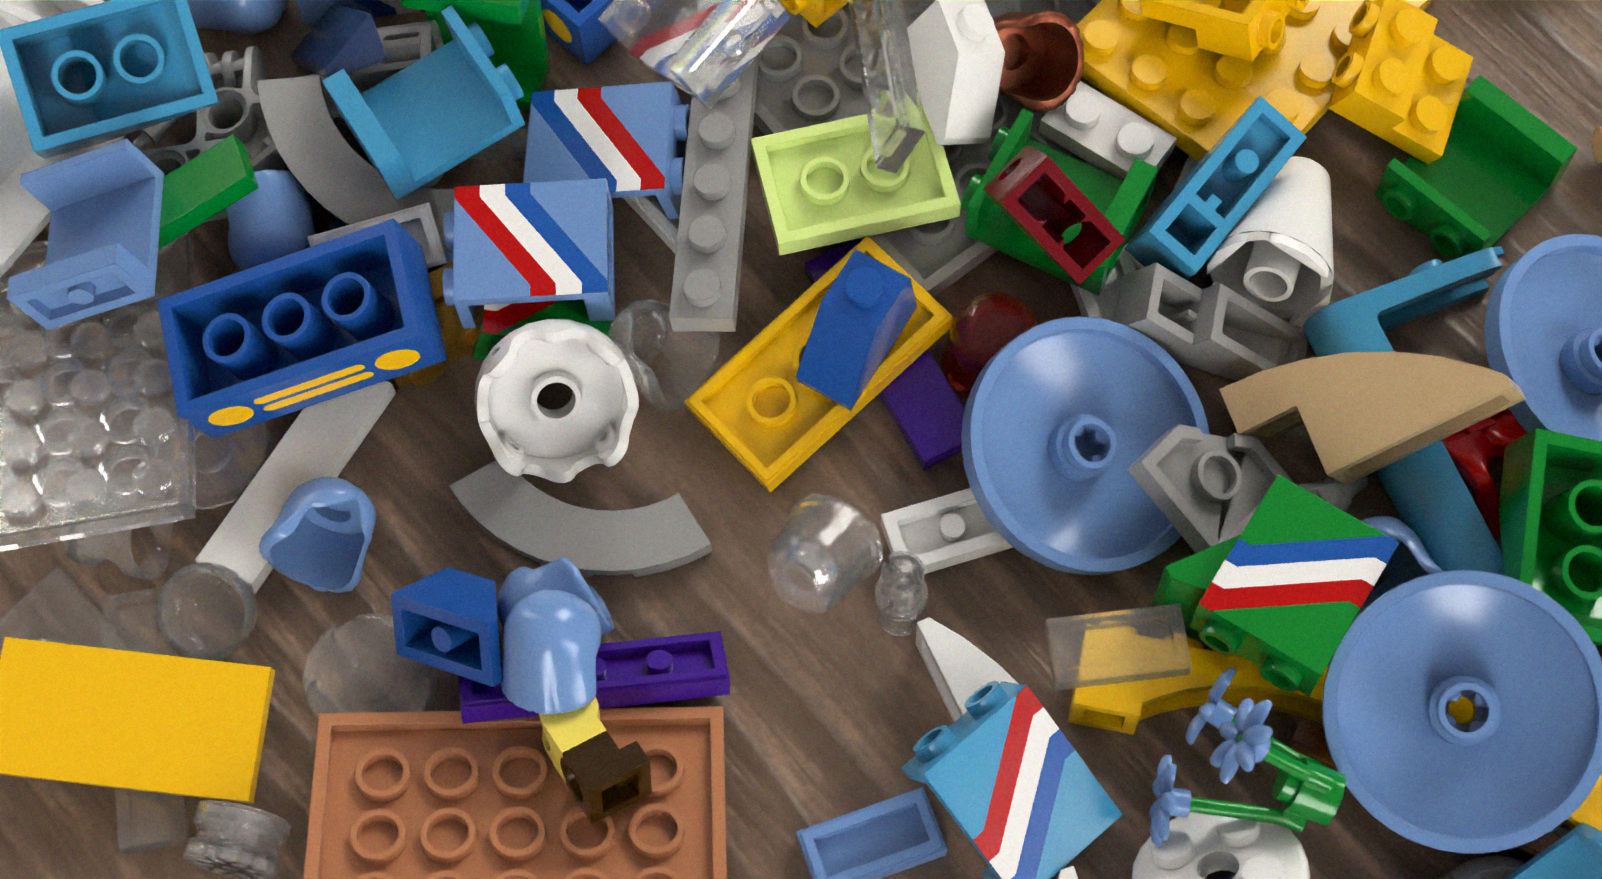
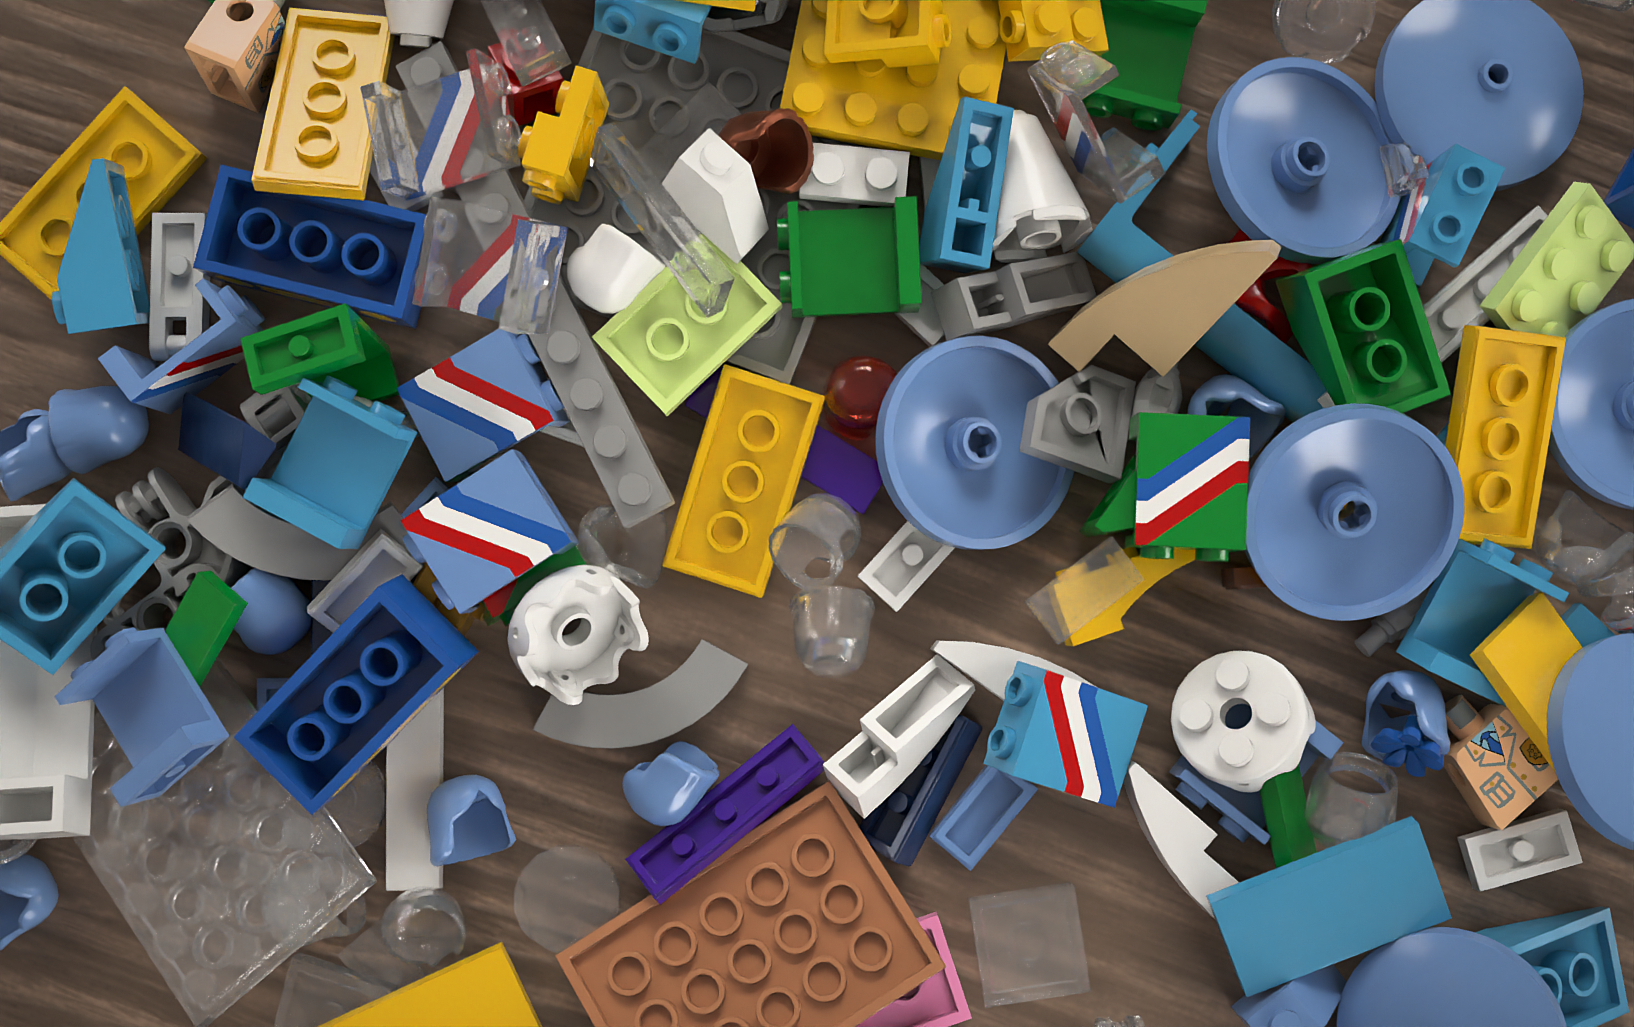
camera: 35 degrees left, 20 degrees up
(450, 624) = (610, 841): blue slope -> none
(550, 652) = (700, 834): medium blue hair -> none
(592, 764) = (747, 874): dark brown leg -> none
(810, 84) = (610, 270): none -> white hair
(819, 773) = (907, 815): none -> dark blue slope
(824, 699) = (898, 735): none -> white slope
(855, 328) = (763, 455): blue slope -> none
(858, 444) = (815, 529): none -> clear helmet
(896, 590) = (923, 629): clear pin -> none
(1045, 205) = (840, 280): dark red torso -> none
(1301, 783) = (1265, 628): plant -> none
(1366, 247) = (1109, 160): none -> clear panel

